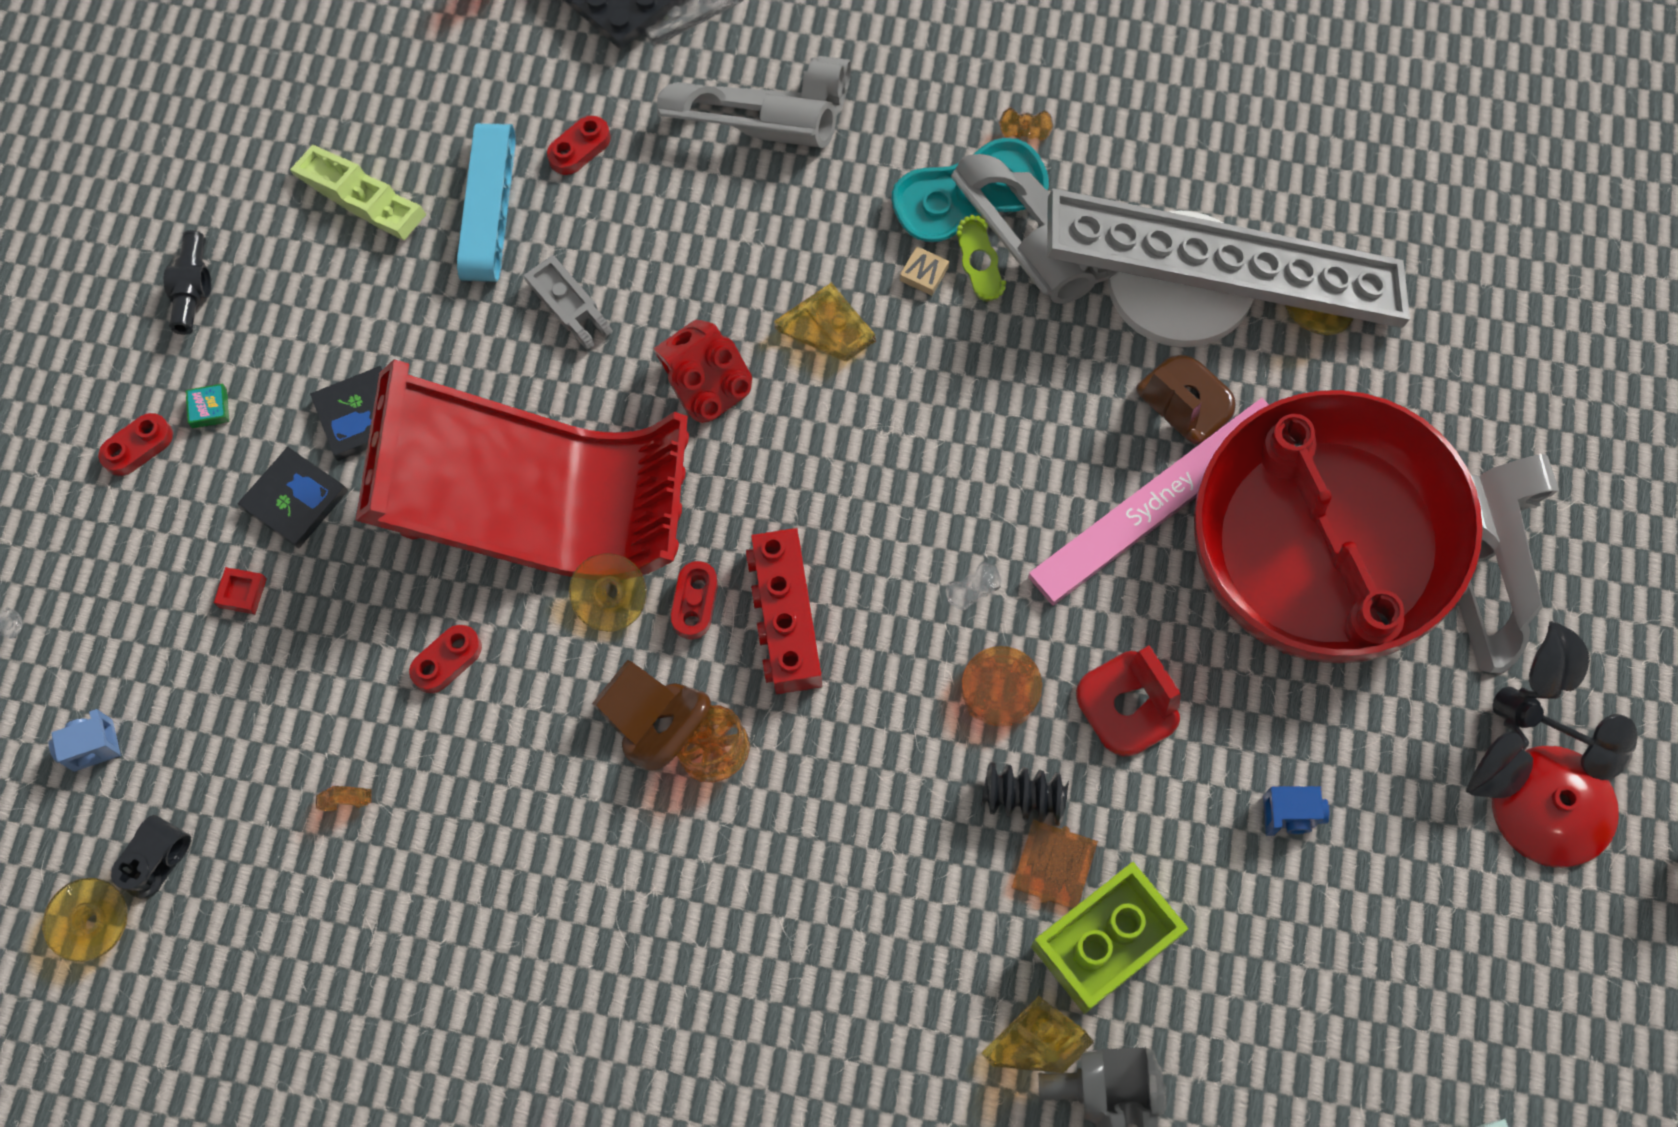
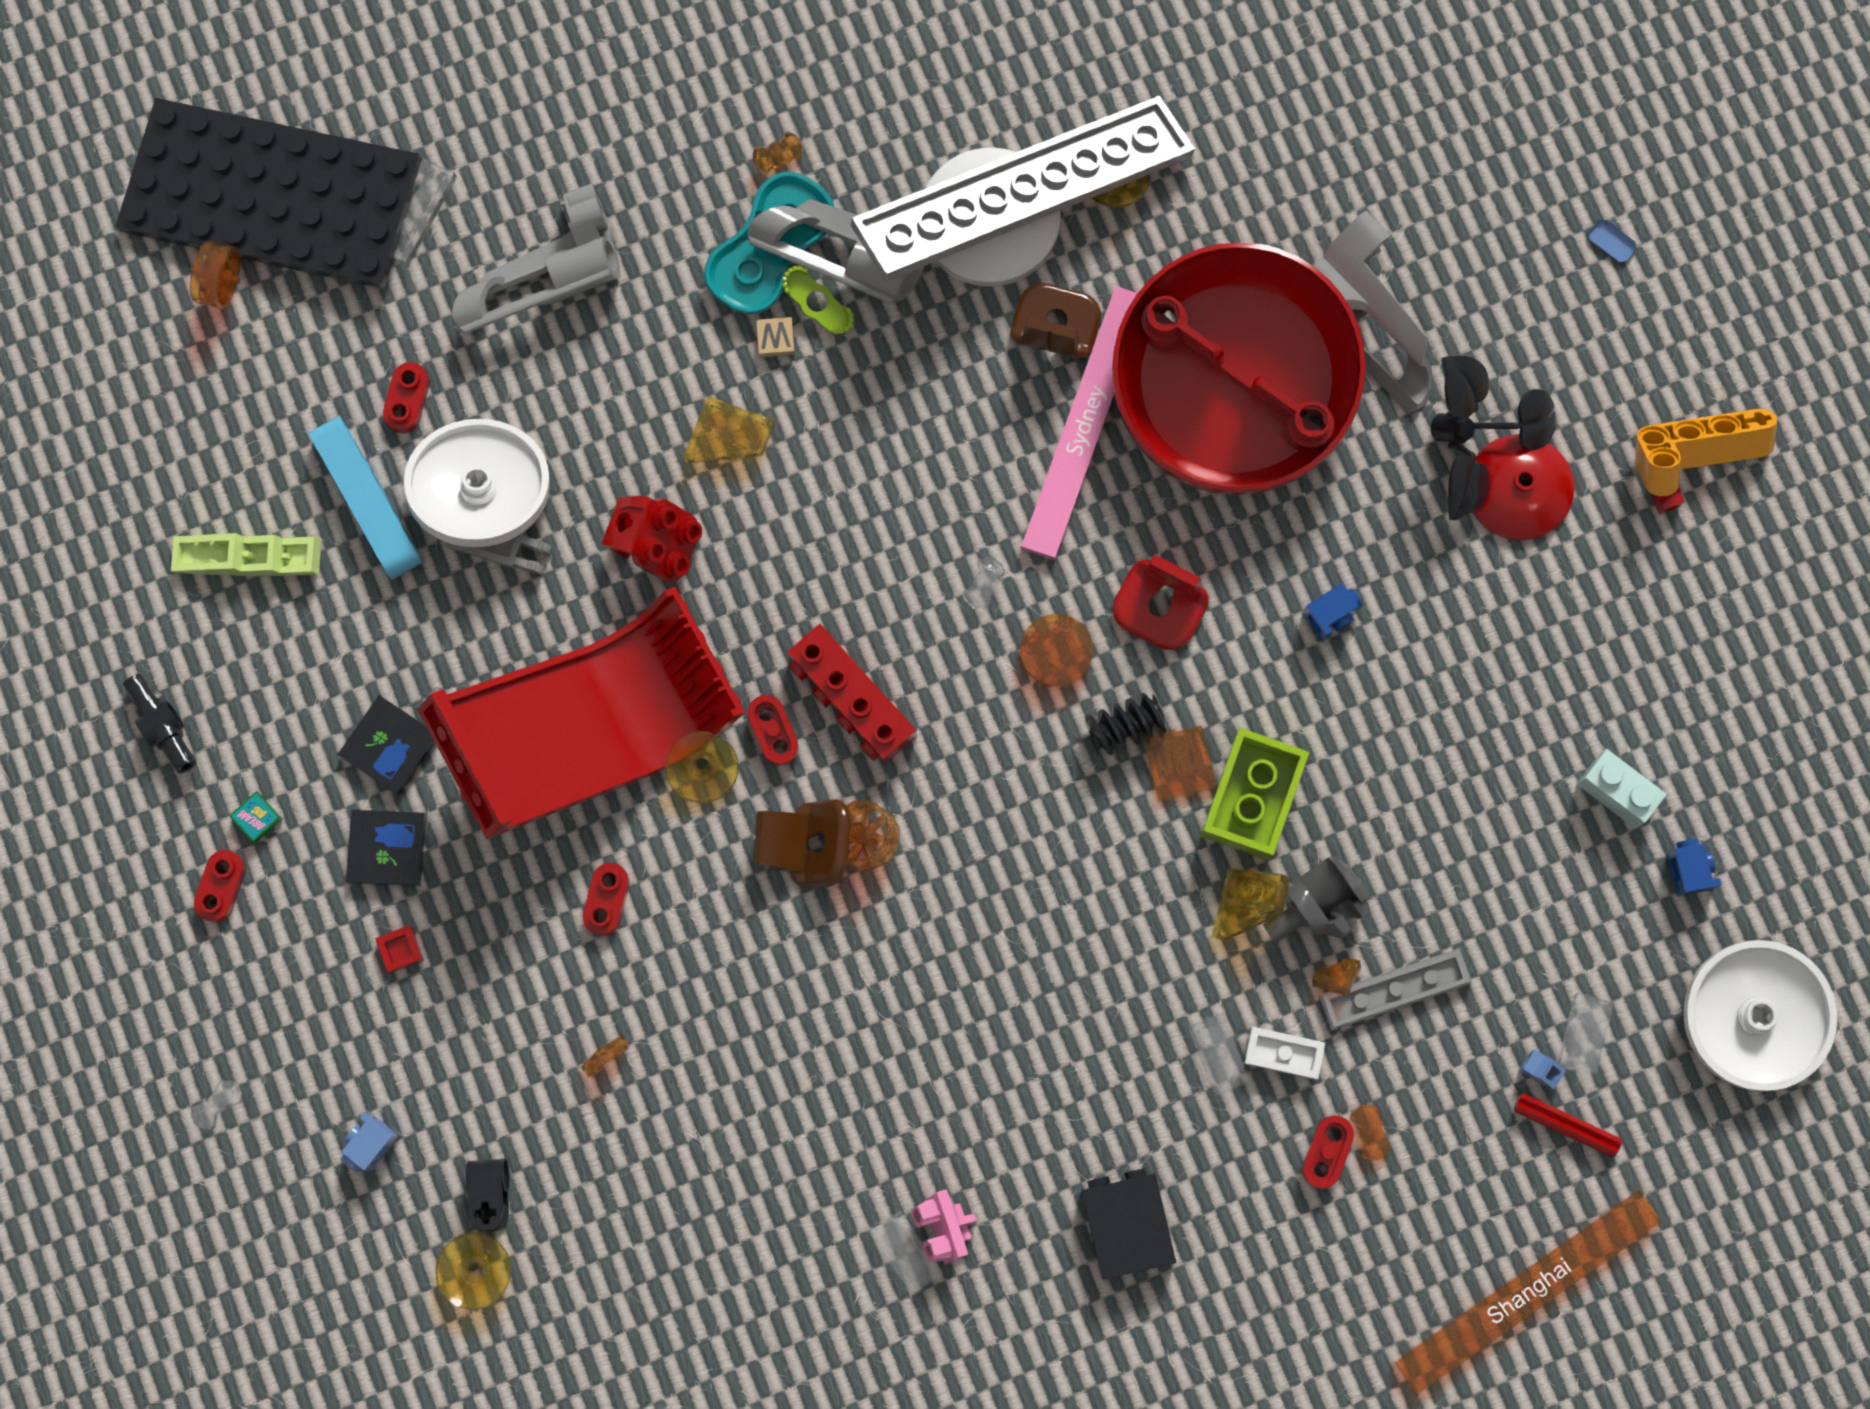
camera: 30 degrees left, 10 degrees up
(583, 239) = (476, 483): none -> white dish

